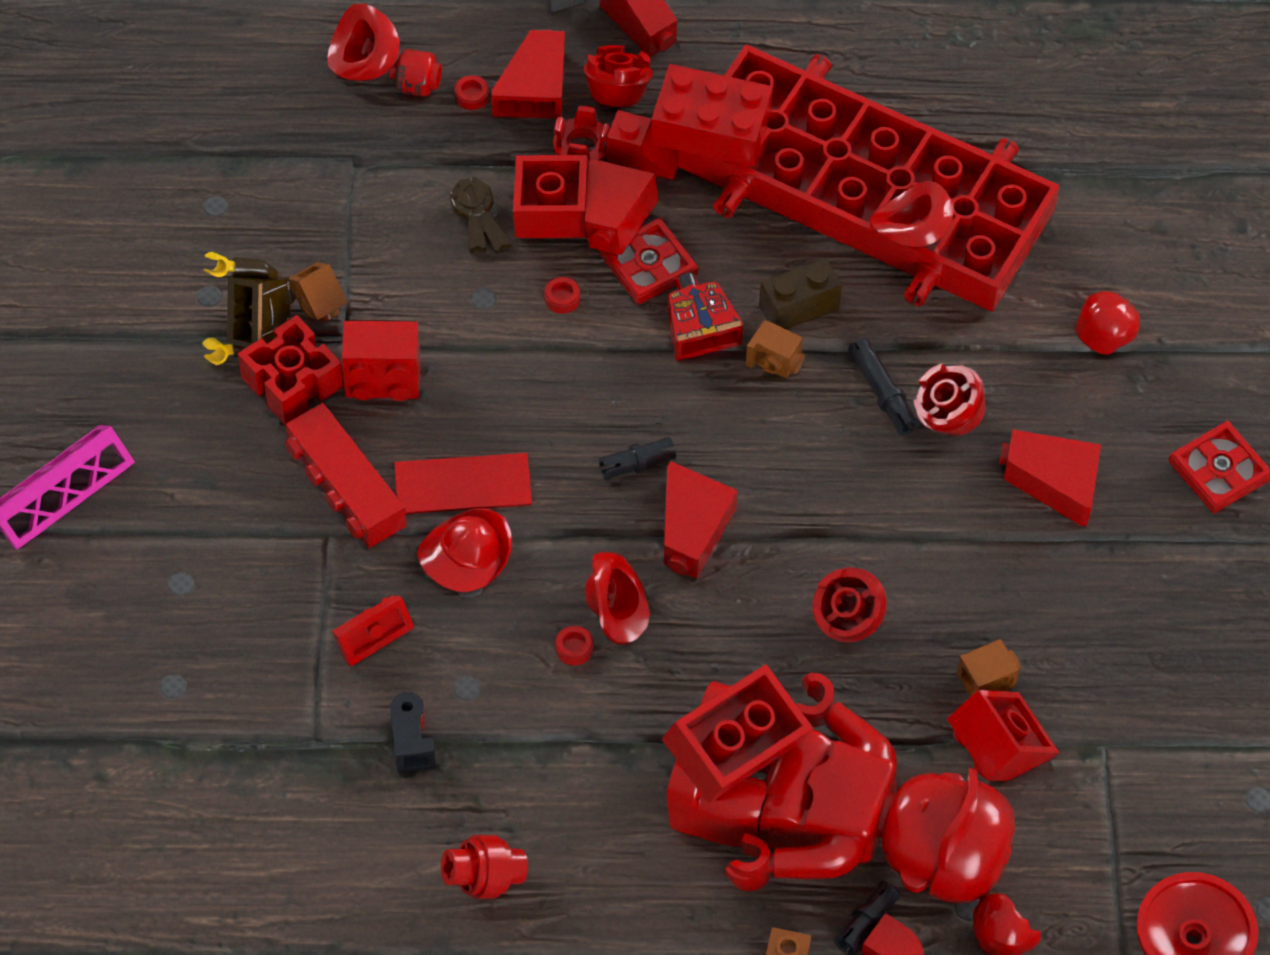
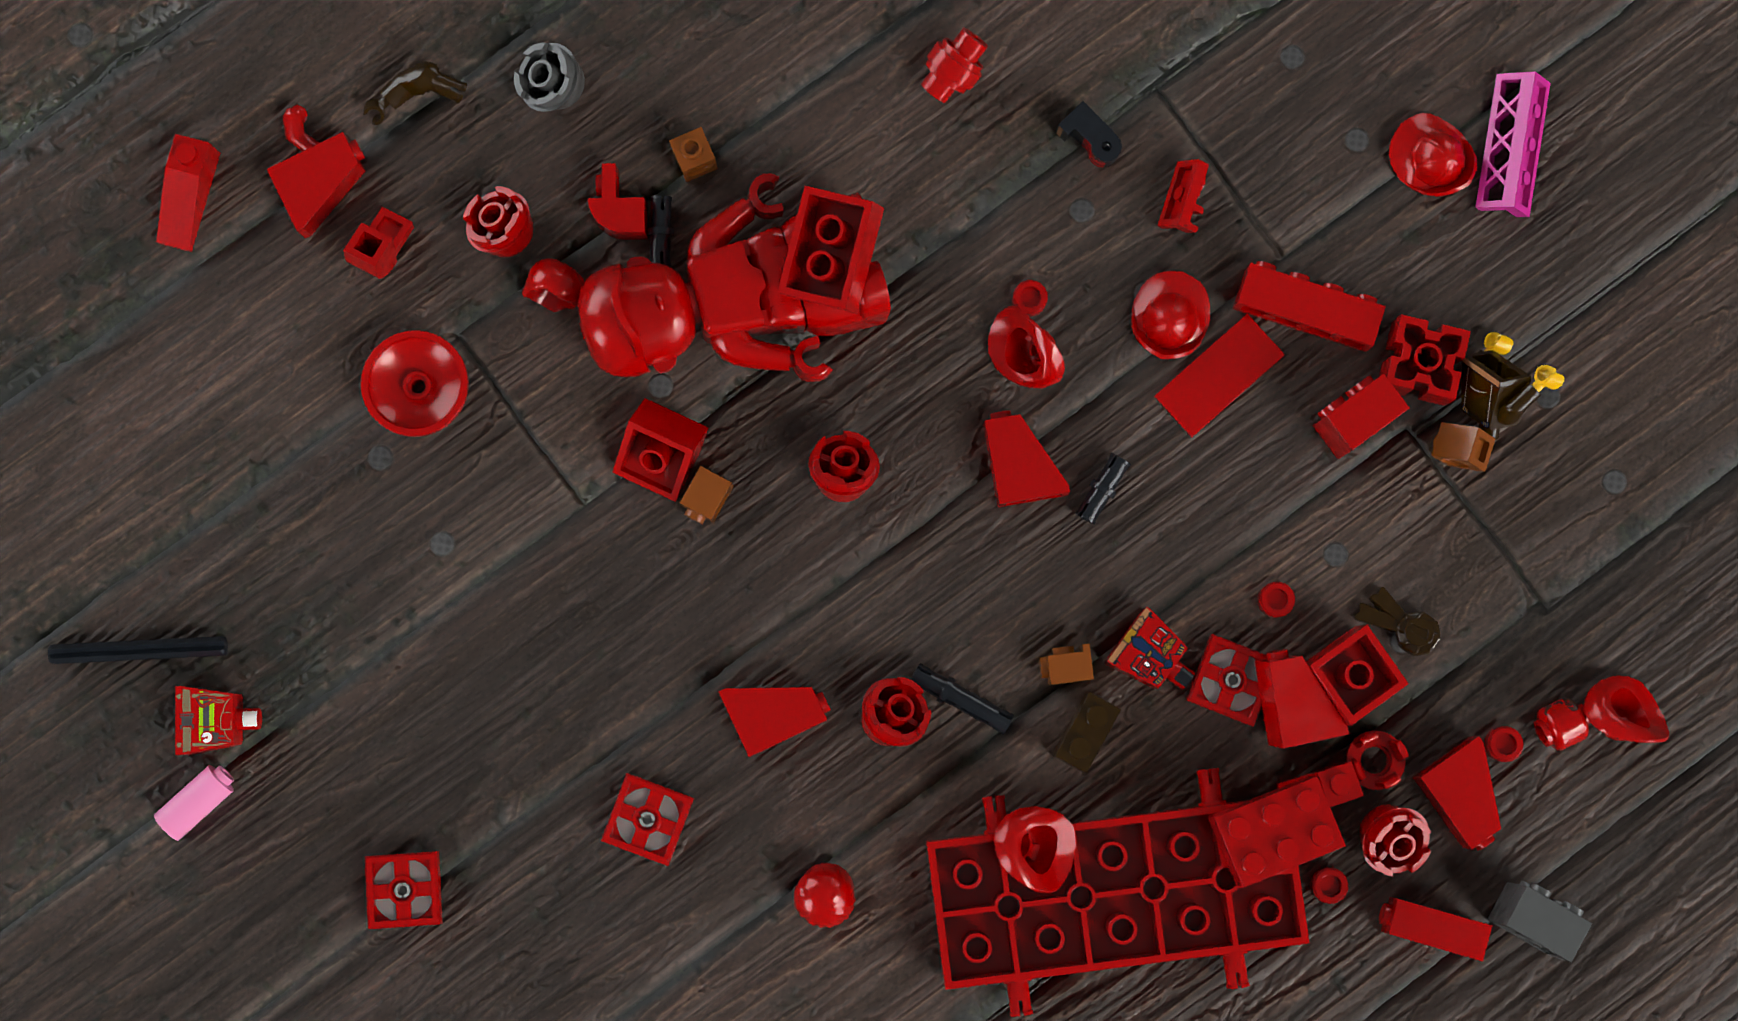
camera: 145 degrees right, 25 degrees up
(132, 521) = (1432, 156): none -> red hat

